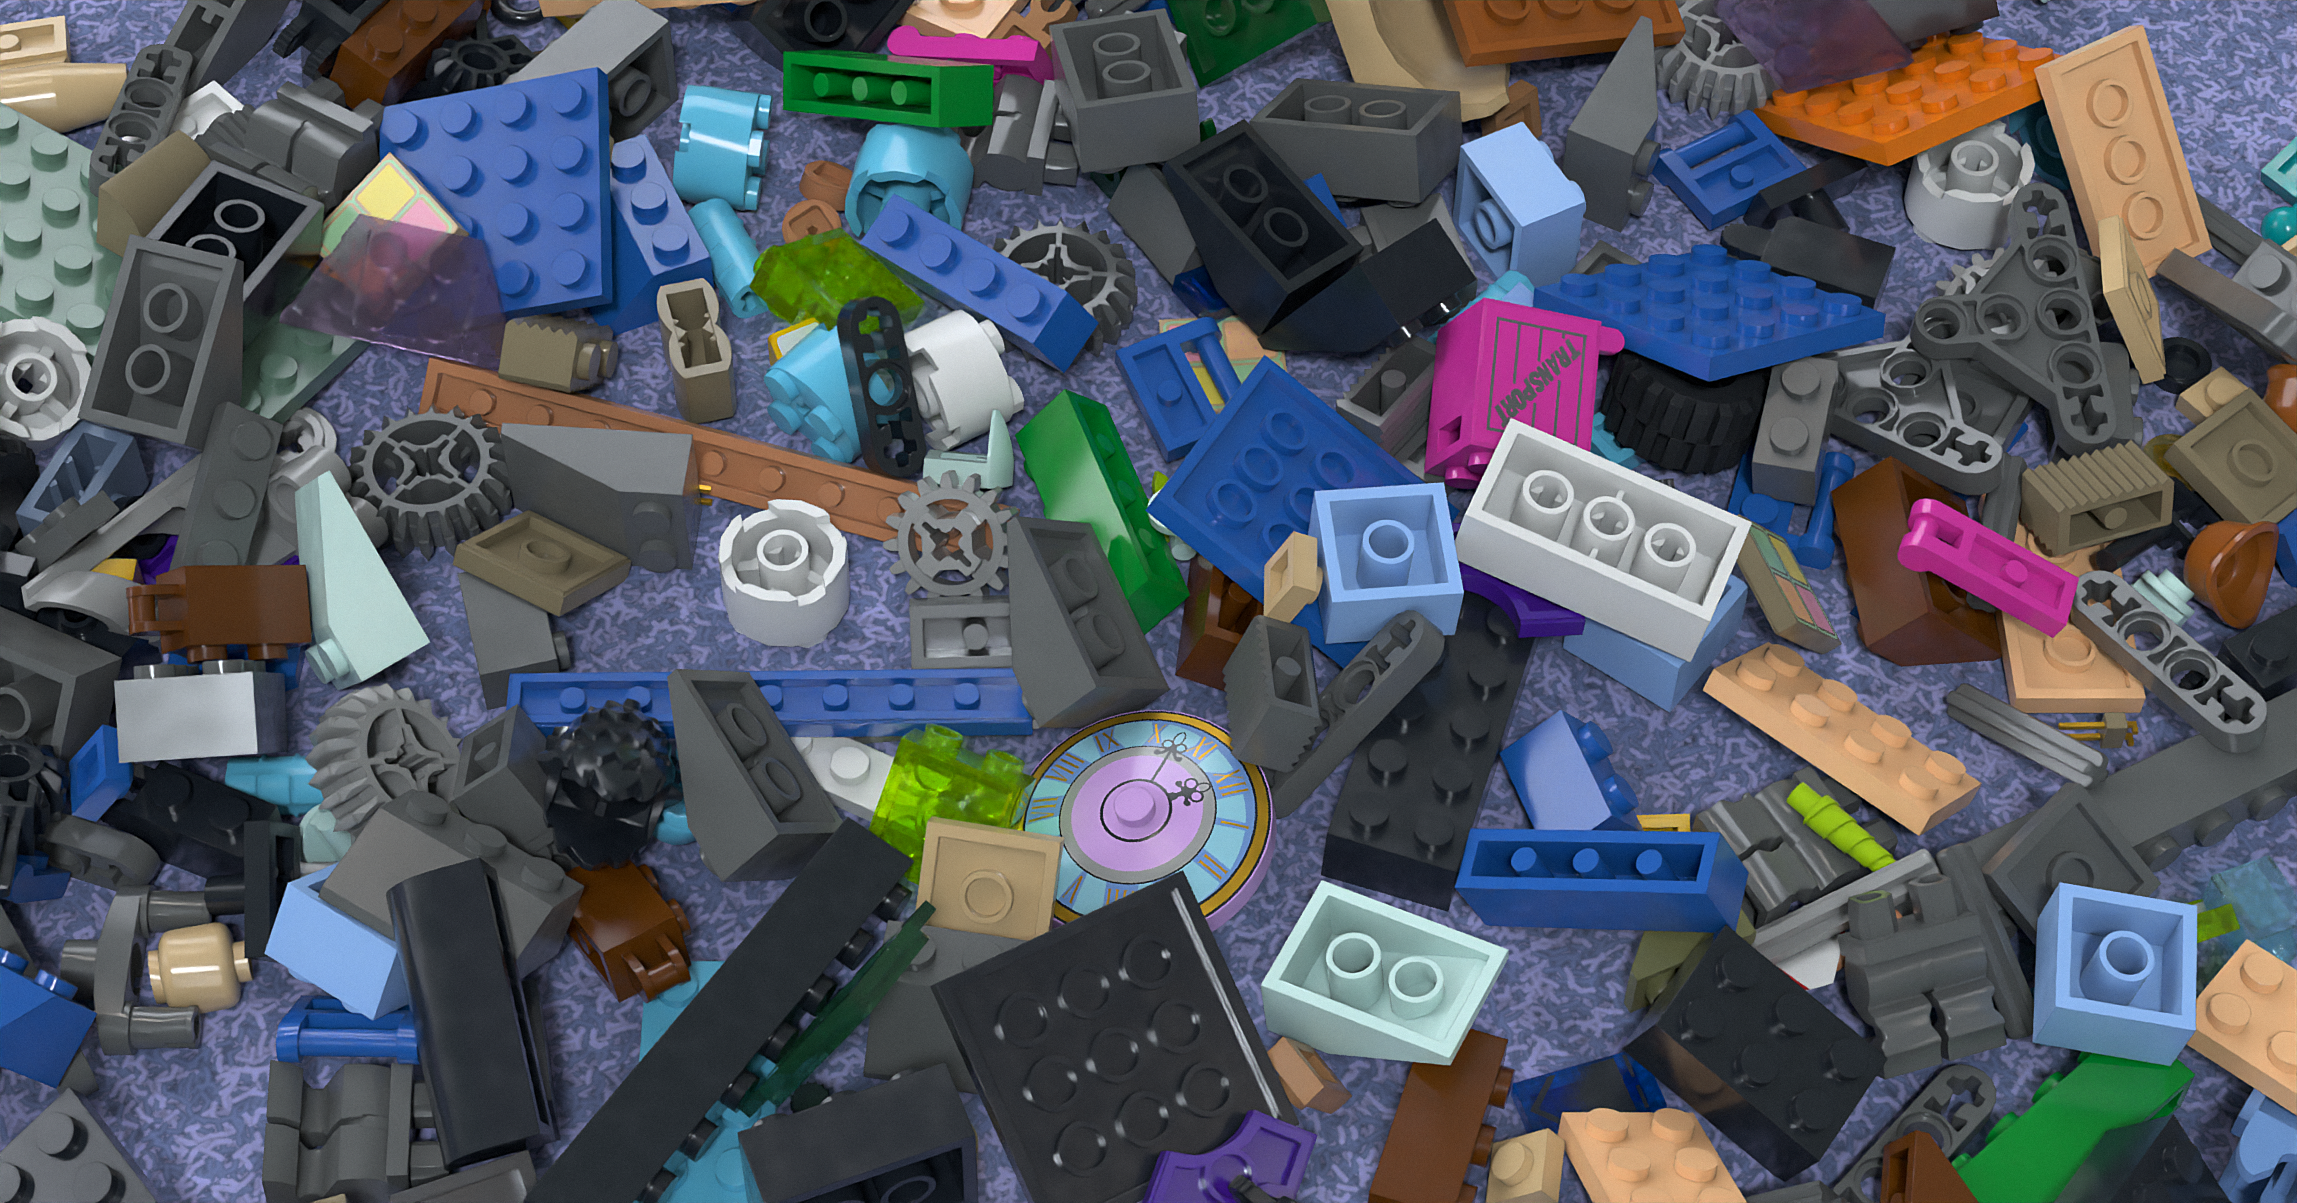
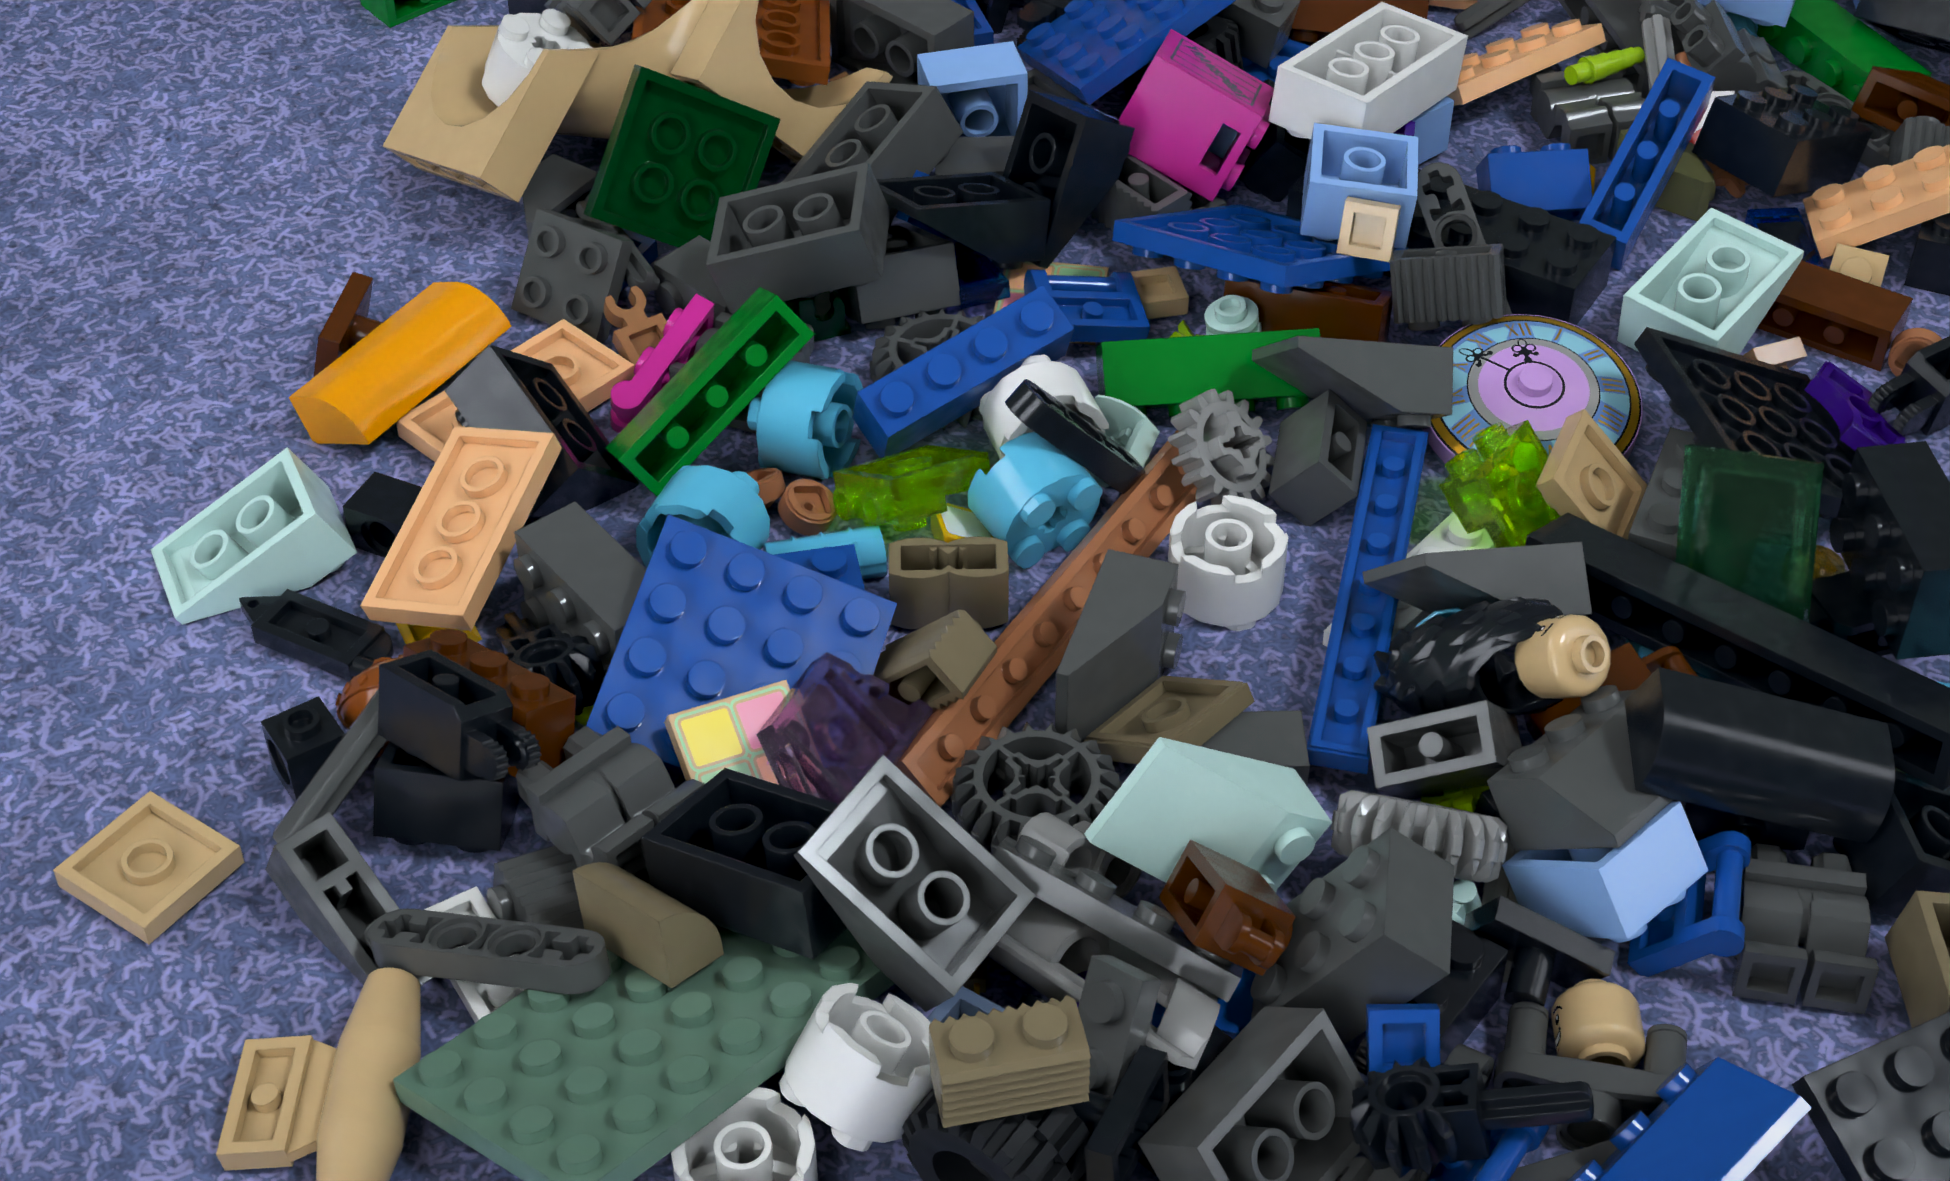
camera: 75 degrees left, 10 degrees down
(575, 825) = (1564, 658): none -> tan head

